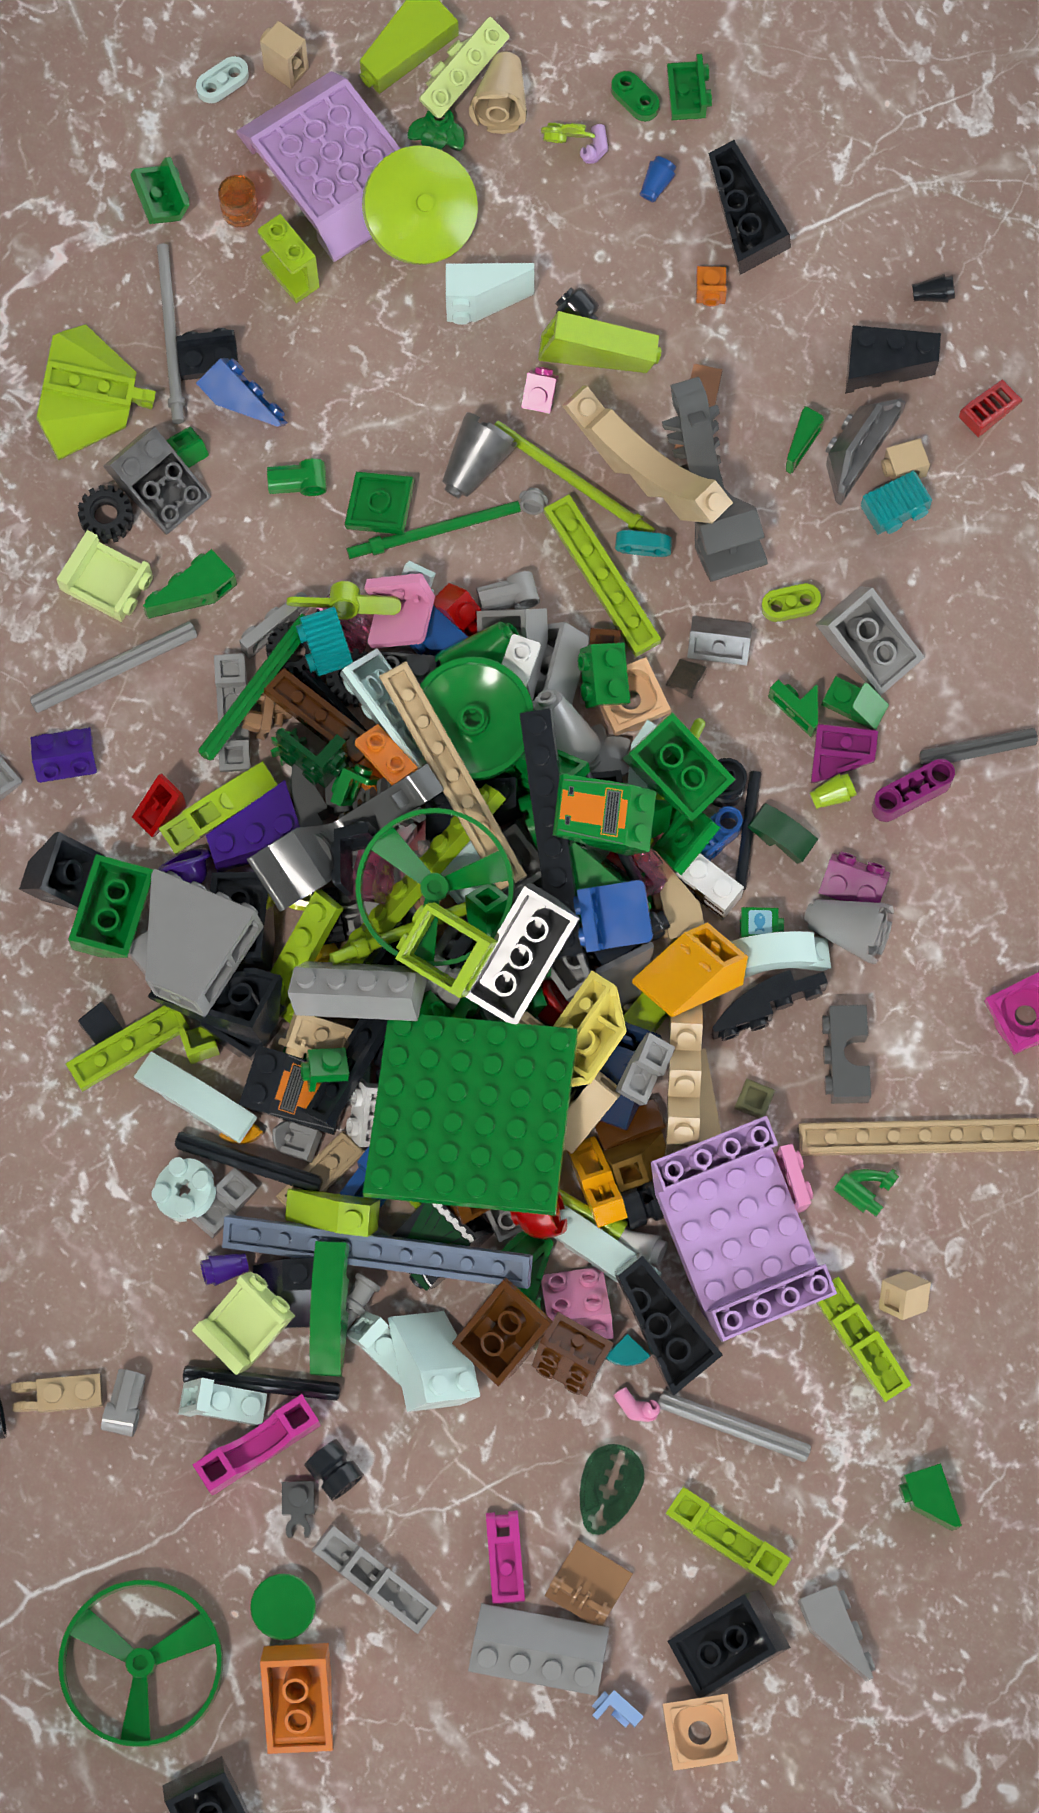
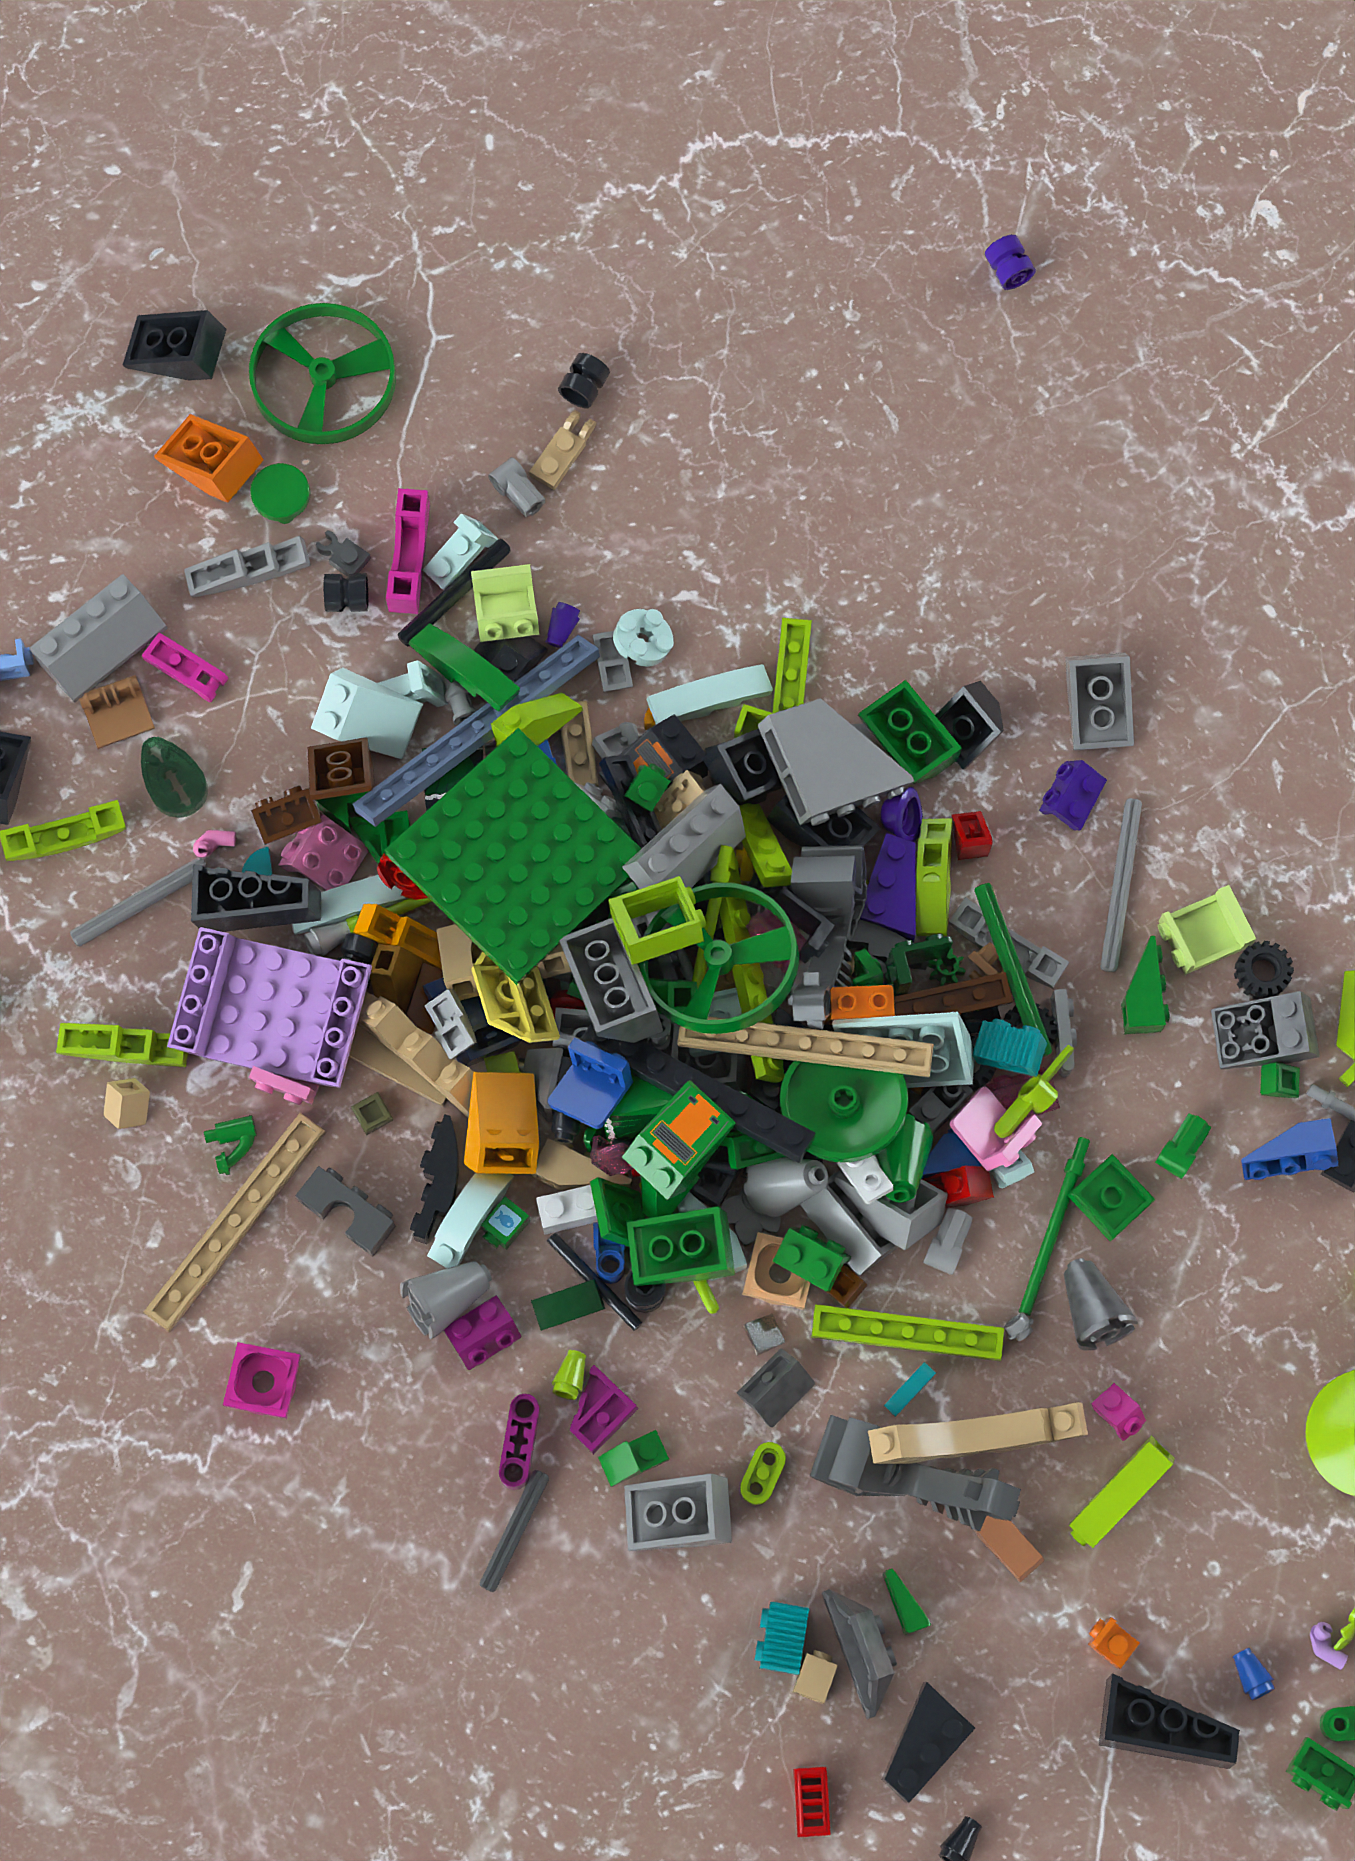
camera: 125 degrees right, 0 degrees up
(99, 1023) = (824, 669): black slope -> none
(248, 1162) = (627, 697): black axle -> none
(485, 288) = (1247, 1423): light aqua slope -> none
(578, 303) = (1172, 1501): black head -> none
(633, 520) = (937, 1399): lime bar -> none
(803, 711) = (657, 1404): green slope -> none

